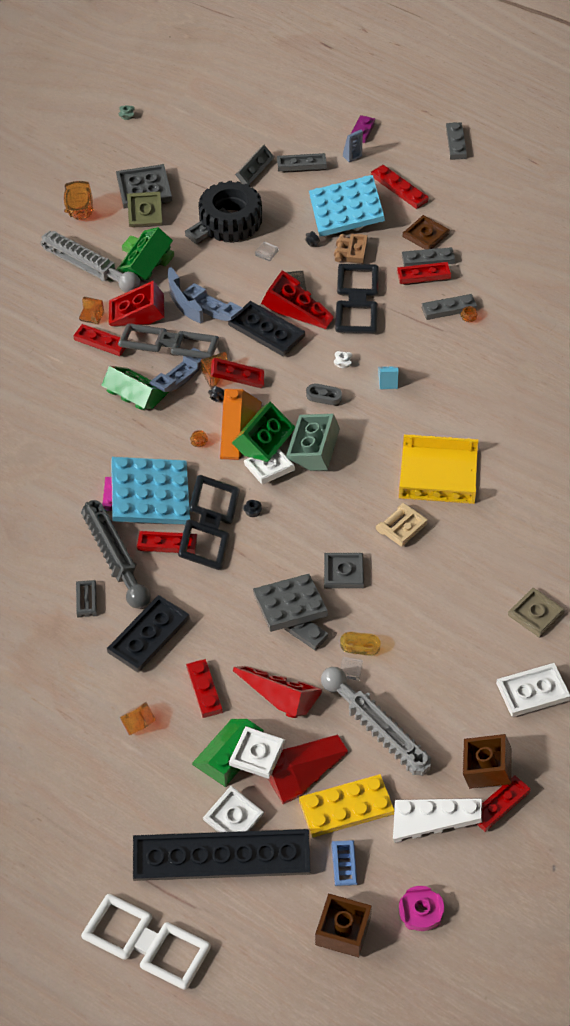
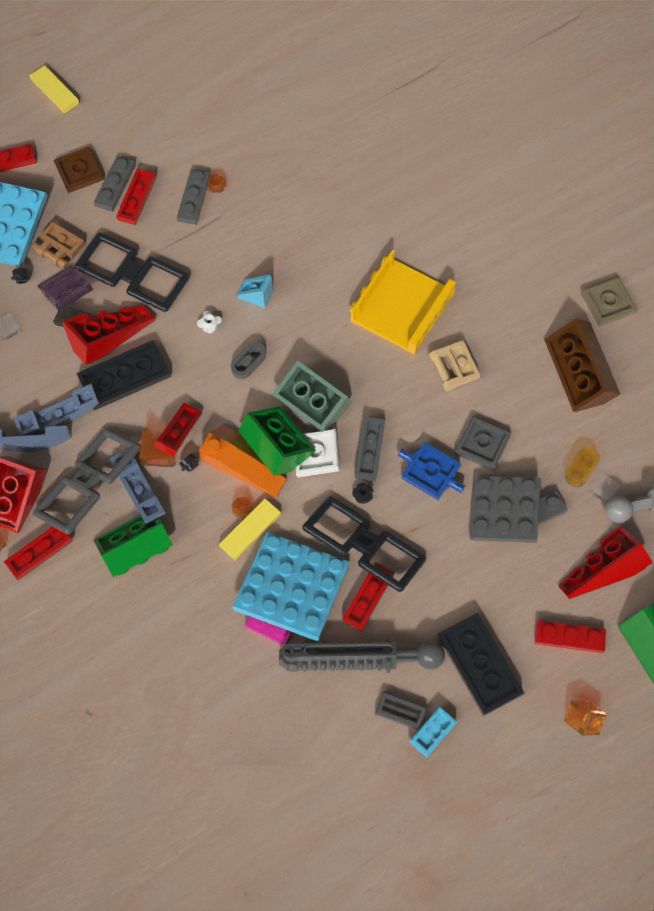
camera: 65 degrees left, 15 degrees up
(78, 622) = (433, 732): none -> medium azure plate
(184, 451) = (250, 529): none -> light yellow tile
(293, 497) = (370, 448): none -> dark grey plate
(296, 542) = (431, 471): none -> blue plate
(317, 266) = (65, 287): none -> clear purple slope
(457, 611) = (581, 366): none -> reddish brown slope
(486, 189) = (54, 89): none -> light yellow tile

